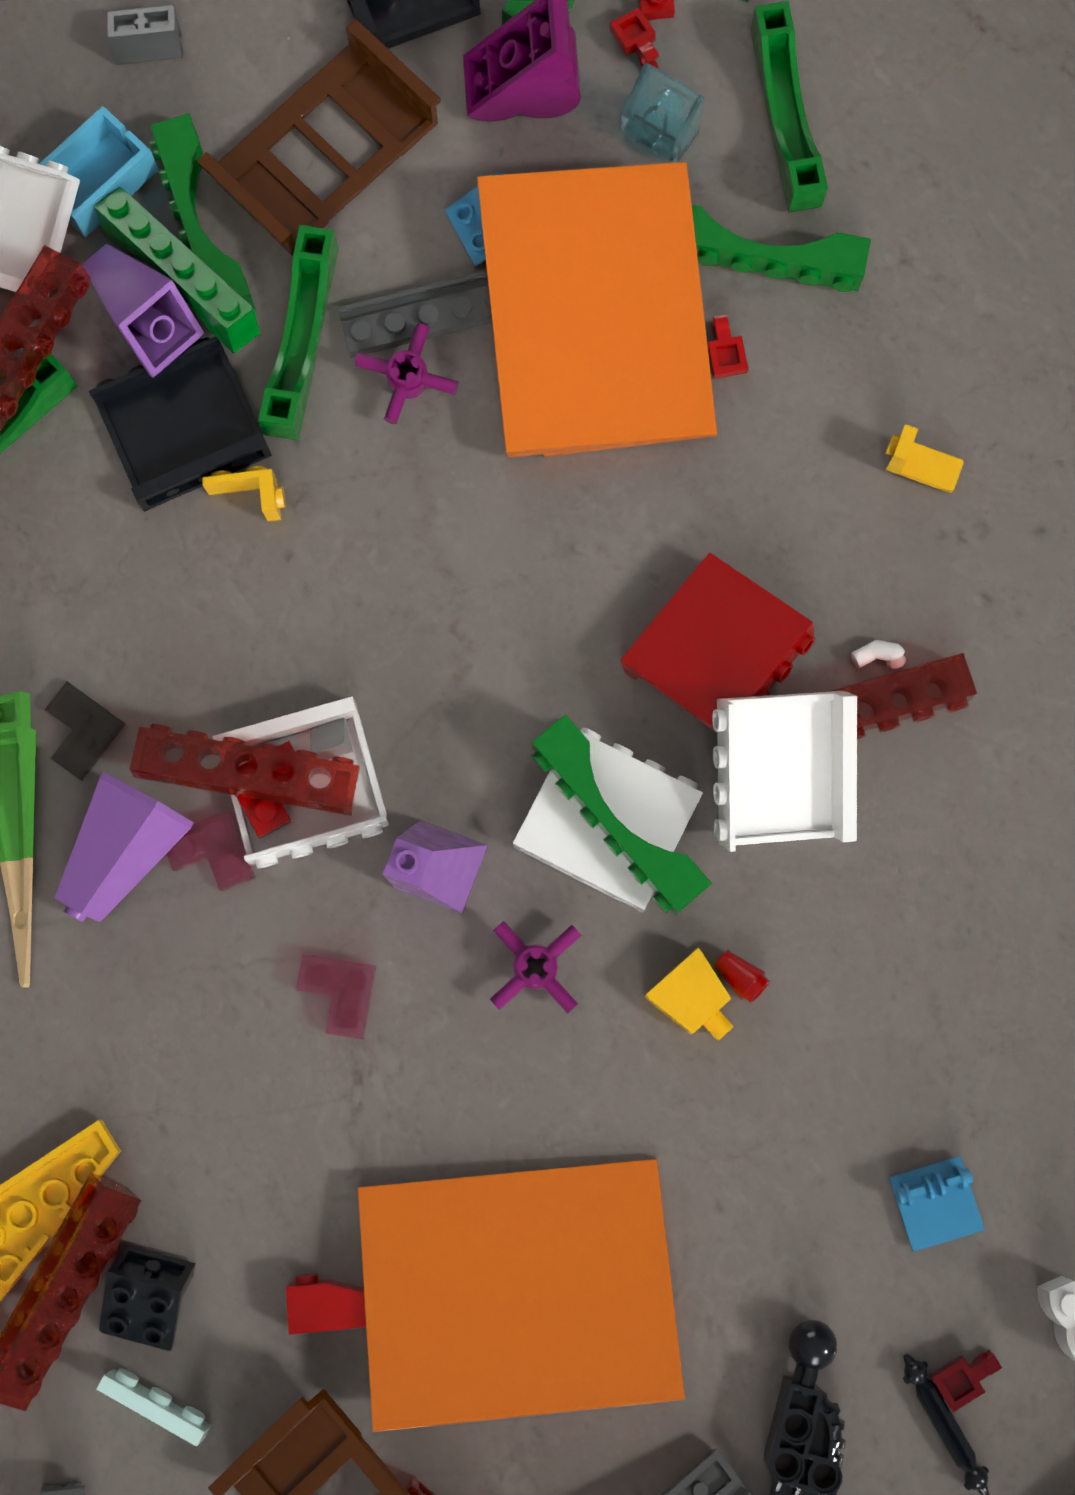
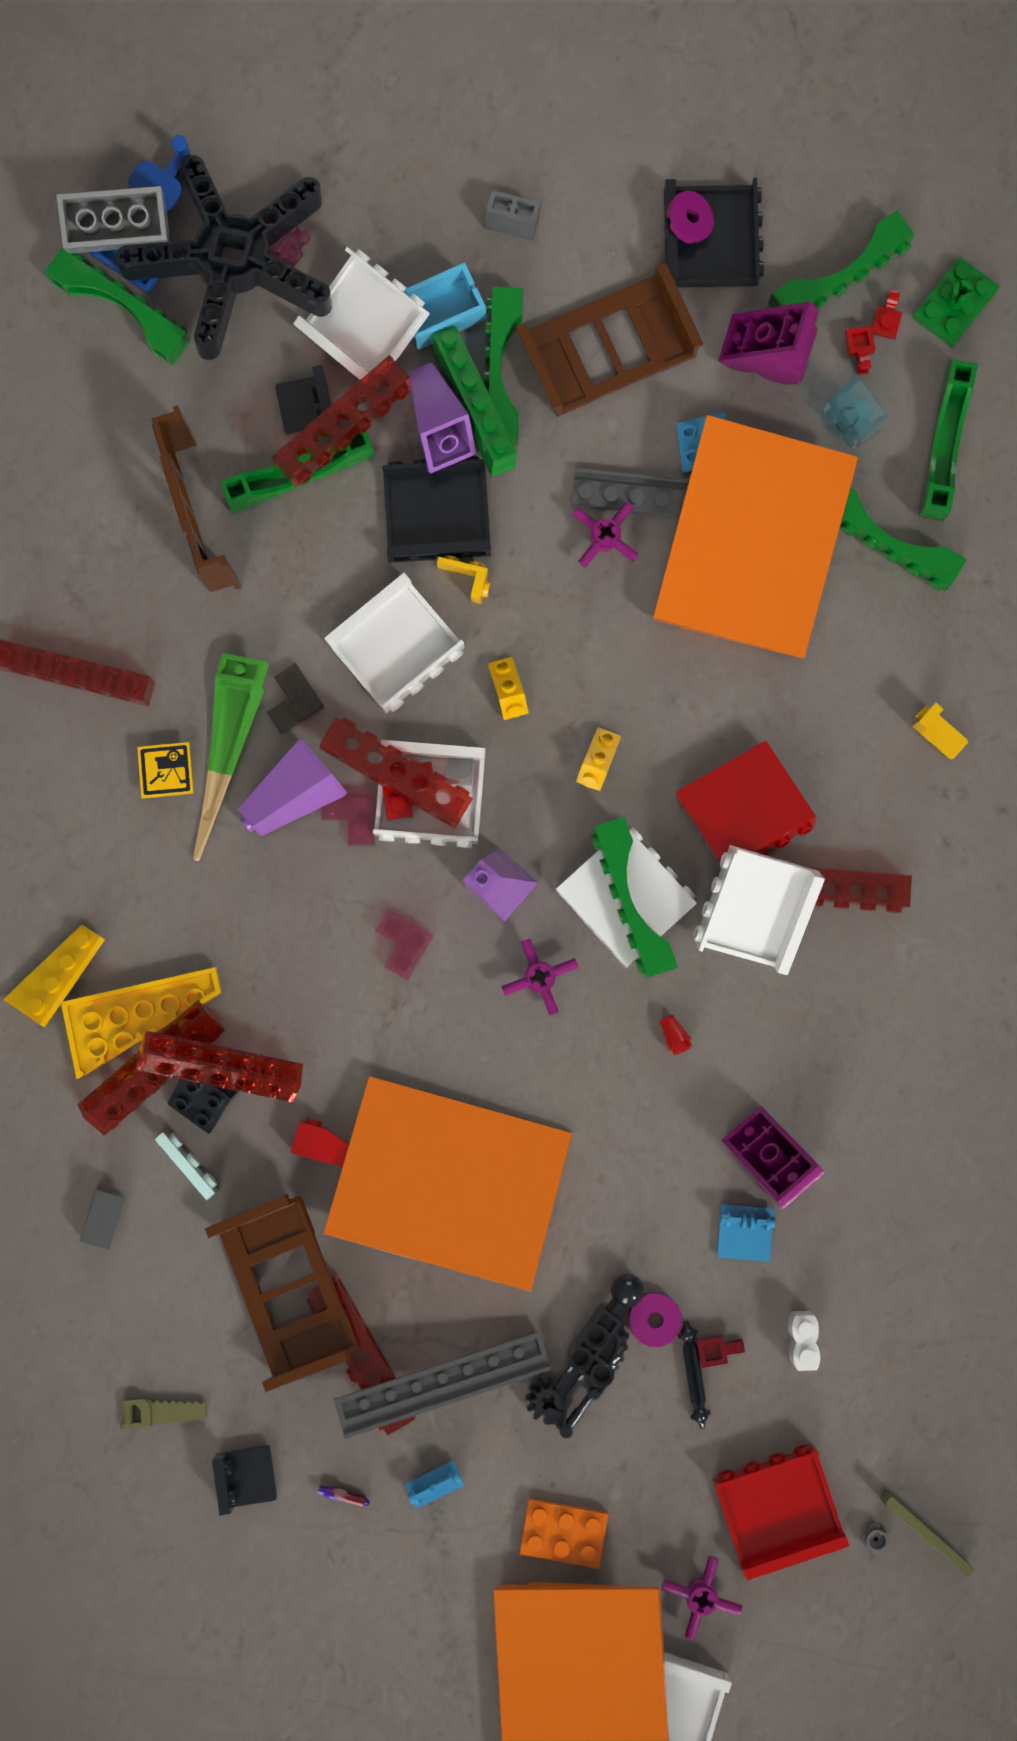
camera: 20 degrees right, 5 degrees up
(146, 1254) = (219, 1066): none -> clear red brick
(186, 609) = (395, 644): none -> white panel
(291, 377) = (552, 462): green arch -> none
(355, 611) = (508, 688): none -> yellow bracket
(504, 657) = (598, 759): none -> yellow bracket
(693, 997) = (637, 1036): yellow torso -> none
(726, 353) = (834, 602): red plate -> none
(881, 650) = (857, 851): white arm -> none
(887, 1374) = (666, 1331): none -> magenta tile
(936, 1089) = (773, 1157): none -> magenta brick

